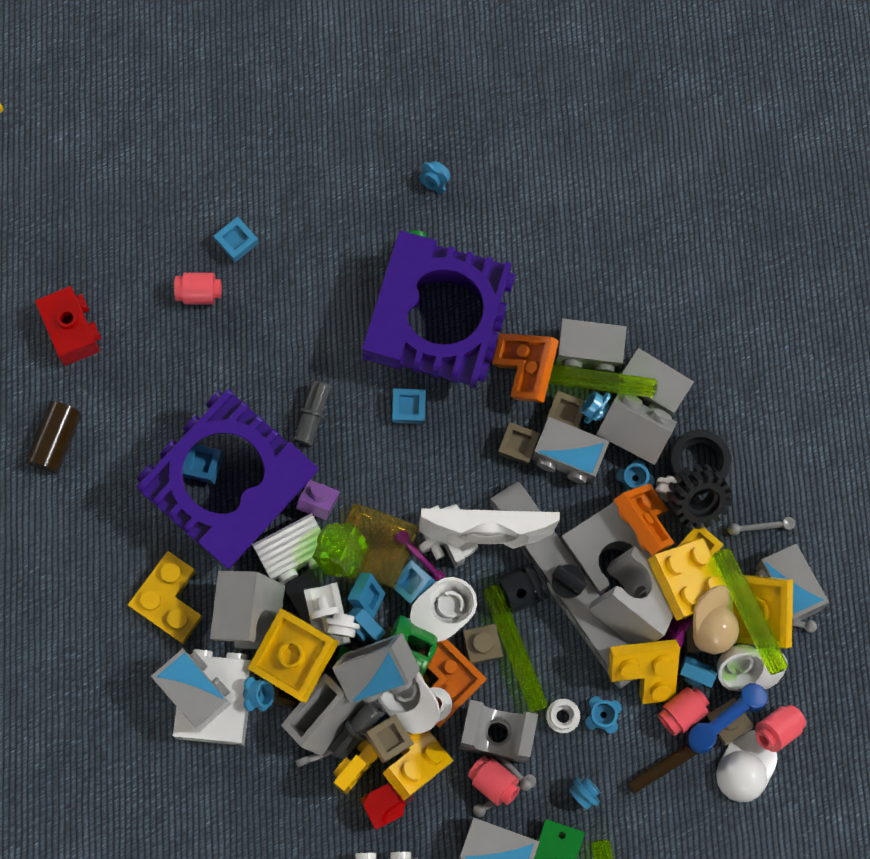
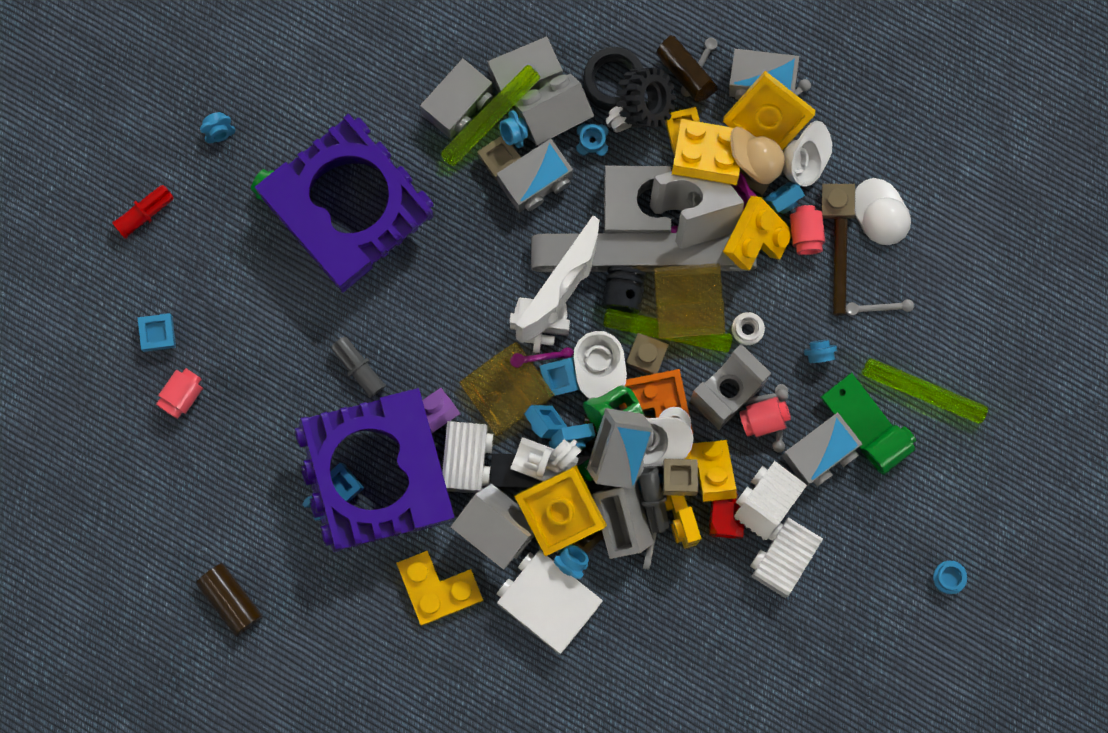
camera: 55 degrees left, 5 degrees up
(68, 326) = (137, 524): red brick -> none
(191, 689) = (534, 611): light grey brick -> none
(328, 165) = (143, 211): none -> red axle
(340, 550) = (497, 416): clear neon green brick -> none
(409, 406) = (406, 282): dark azure plate -> none
(422, 831) = (769, 500): none -> white brick
(518, 443) = (500, 213): dark tan plate -> none
(534, 362) = (441, 153): orange plate -> none
(550, 648) = (689, 300): none -> clear yellow slope
(568, 581) = (646, 249): black plate -> none
(594, 719) = (768, 286): dark azure plate -> none
(641, 510) = (626, 152): orange plate -> none
(643, 797) = (852, 308): none -> light grey hinge
(703, 735) = (838, 227): blue bar -> none
(750, 515) = (686, 69): none -> dark brown brick
(750, 611) = (766, 122): clear neon green axle -> none
(780, 728) = (870, 164): coral brick -> none

